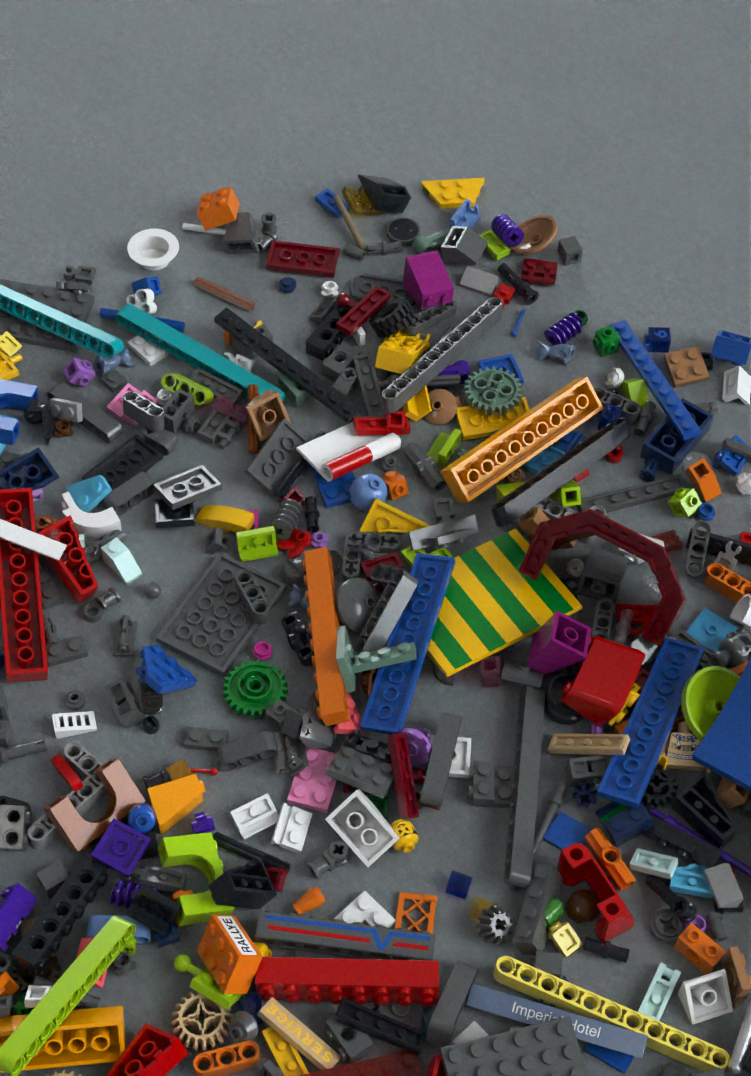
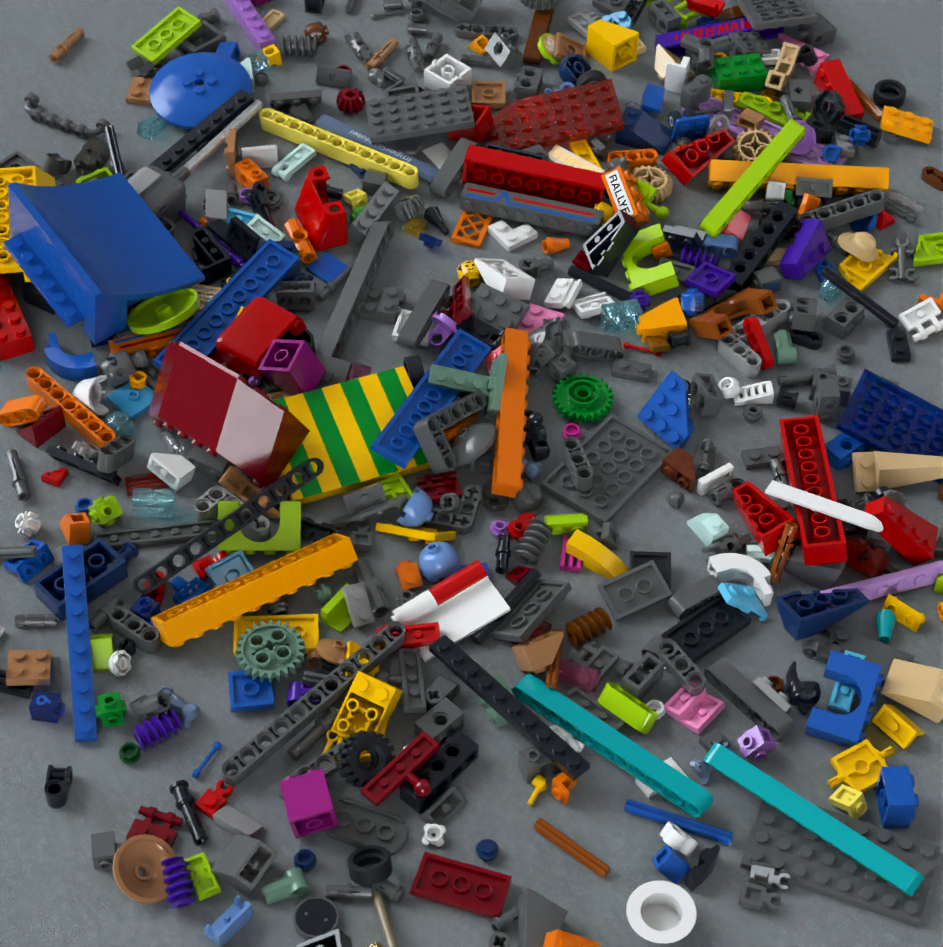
camera: 170 degrees left, 5 degrees down
(37, 719) = (787, 398): none -> black bush
(37, 781) = (784, 350): none -> sand green piece
(100, 729) = (729, 387): none -> white plate
(114, 612) = (715, 479): none -> white tile
(119, 289) = (706, 864): none -> black slope
(149, 619) = (680, 469): none -> copper slope
(222, 799) = (620, 315): none -> clear light blue brick
(226, 451) = (585, 625): none -> reddish brown piece
(378, 245) = (372, 874): none -> black tyre
(397, 526) = (416, 510): none -> medium blue cylinder
(431, 443) = (358, 604): none -> light grey plate
(434, 684) = (414, 369): none -> black tyre
(463, 925) = (433, 216): none -> black cone
(483, 515) = (321, 531): none -> black hinge
(574, 337) = (146, 707): none -> dark grey piece
(589, 744) = (279, 295): tan tile -> none
(623, 287) = (57, 785): none -> black piece
(645, 517) = (153, 502): none -> clear light blue pin
(712, 597) = (120, 423): none -> clear light blue hair
(717, 638) = (138, 381): none -> light orange bush

